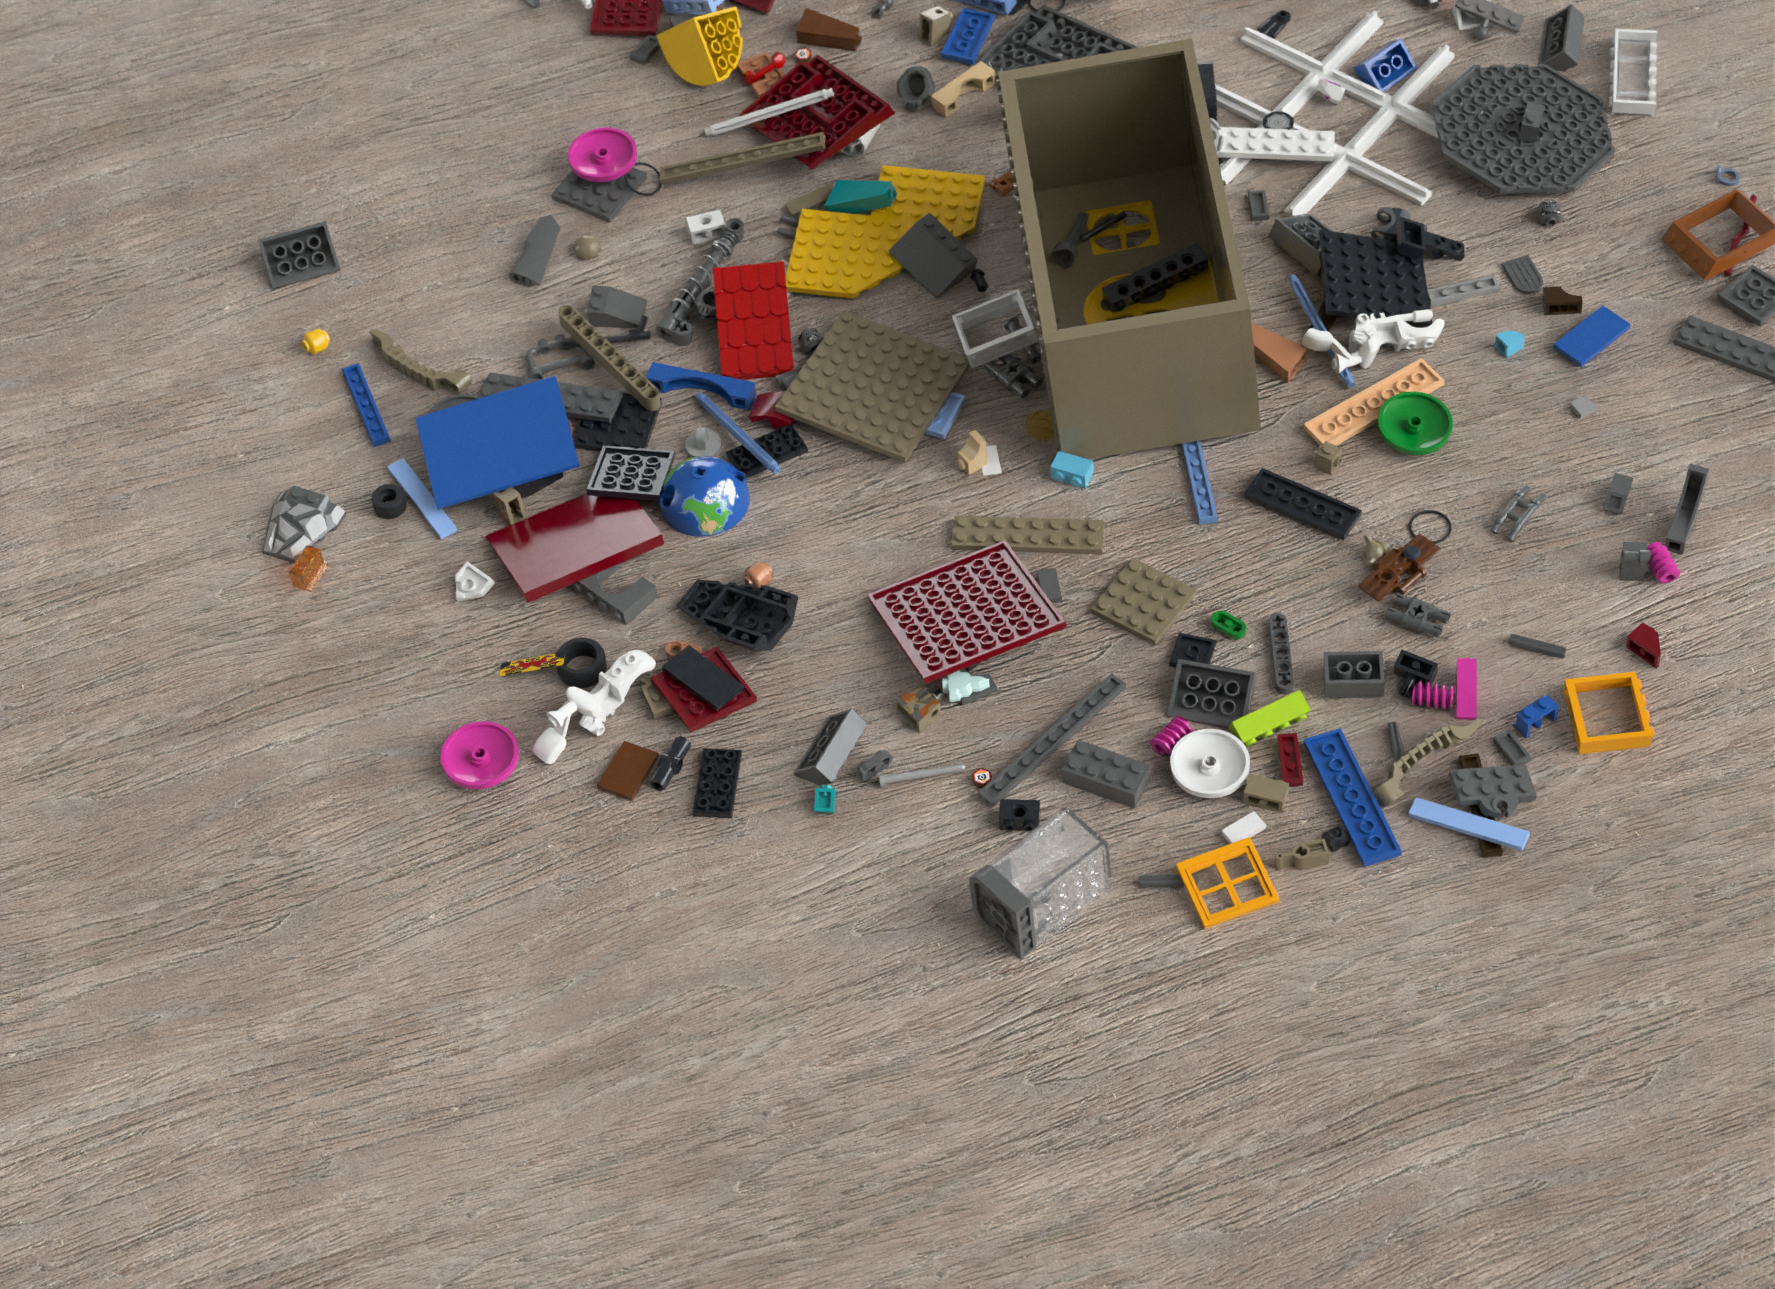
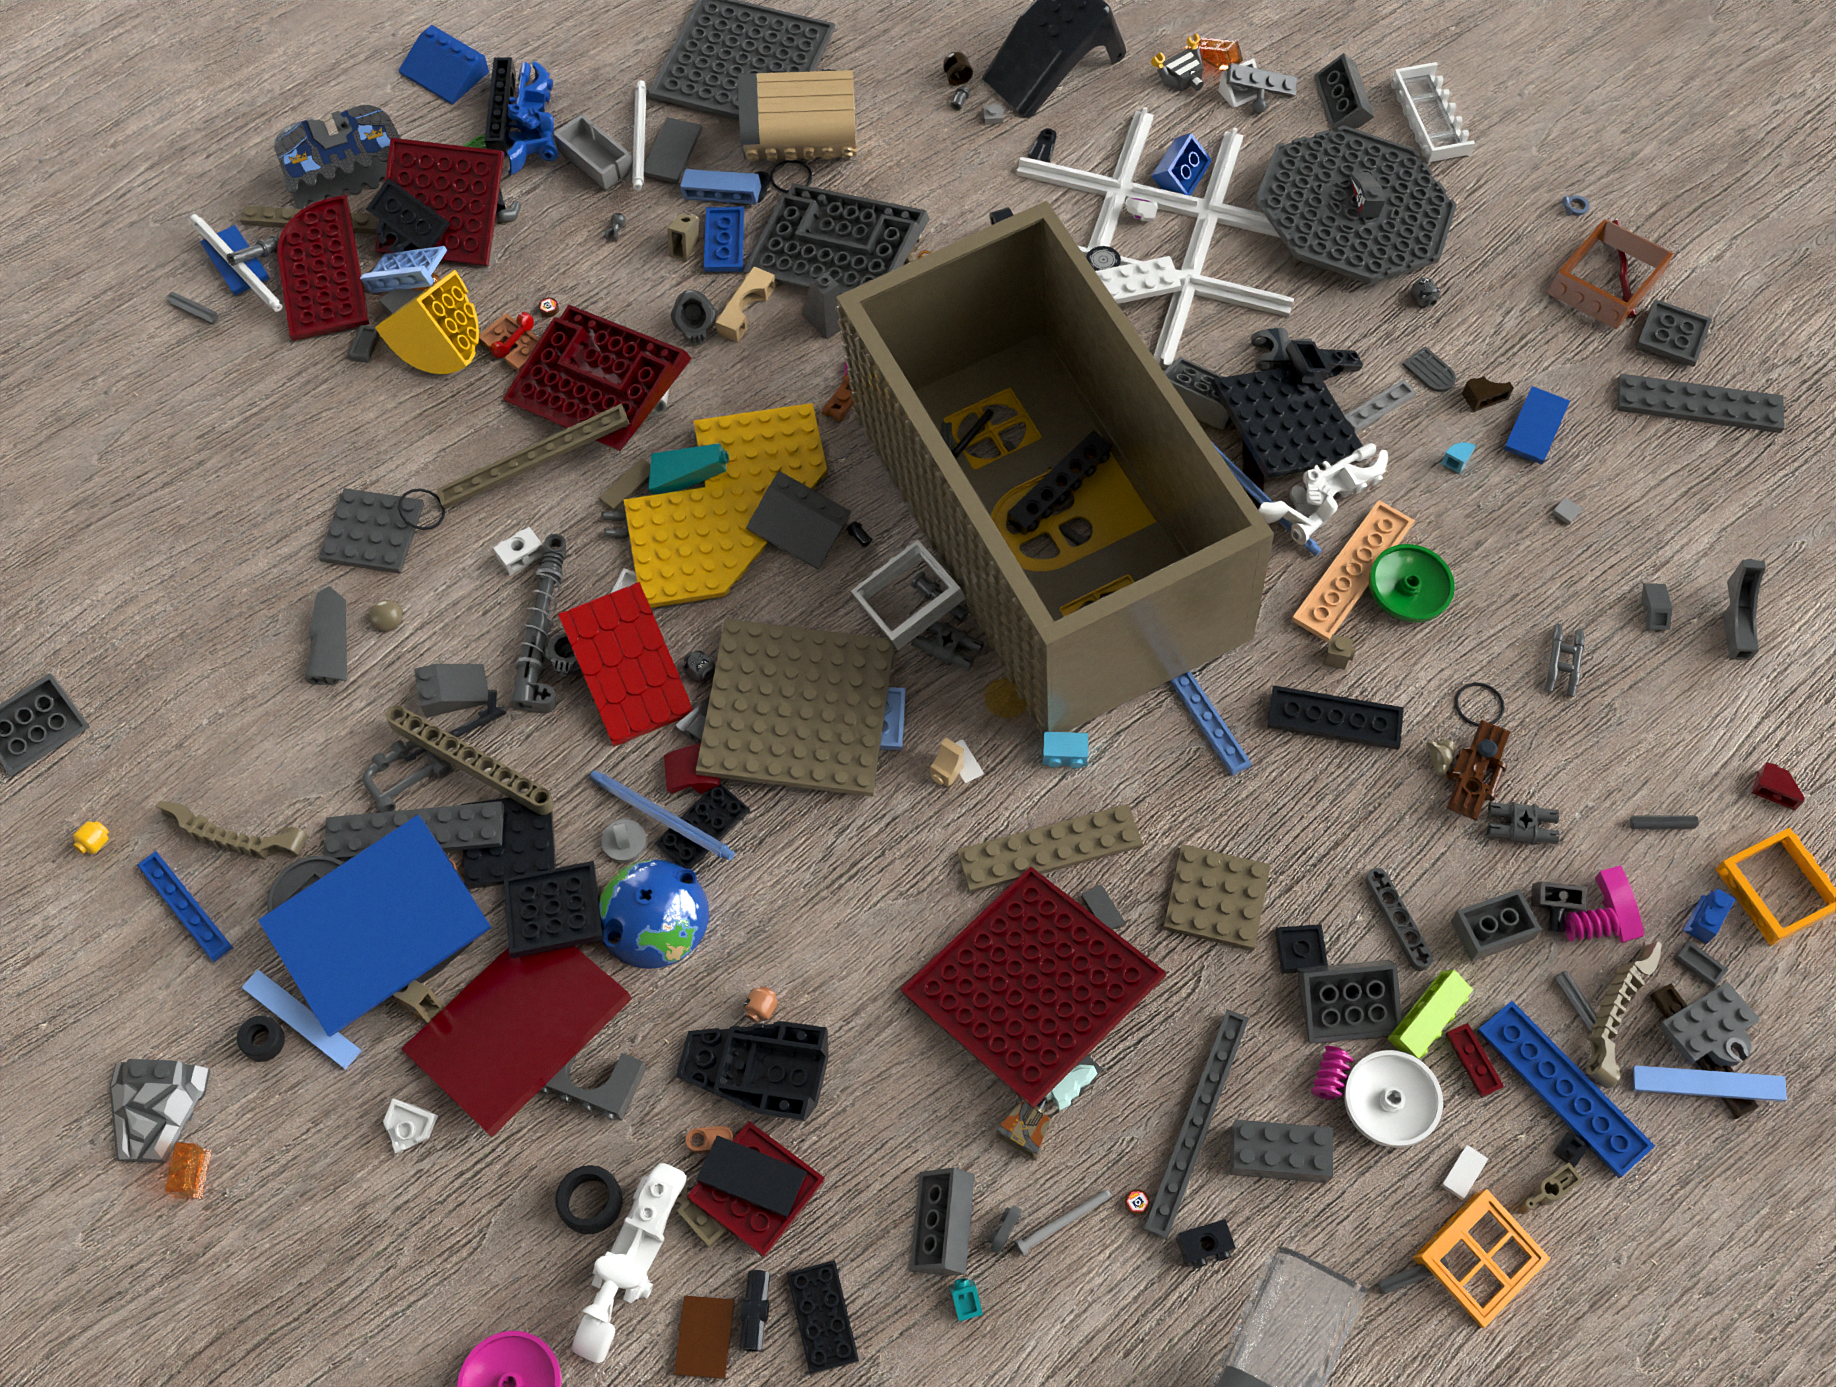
camera: 25 degrees left, 10 degrees up
(531, 664) = (528, 1223): sticker -> none
(602, 154) = (364, 493): dark pink dish -> none
(735, 391) = (546, 764): blue arch -> none
(769, 112) = (541, 390): white piece -> none
(827, 32) = (565, 272): reddish brown slope -> none
(1229, 625) = (1326, 898): green plate -> none
(1266, 793) = (1470, 1115): dark tan brick -> none
(1634, 561) = (1721, 687): dark grey hinge -> none
(1662, 563) = (1743, 680): dark pink piece -> none

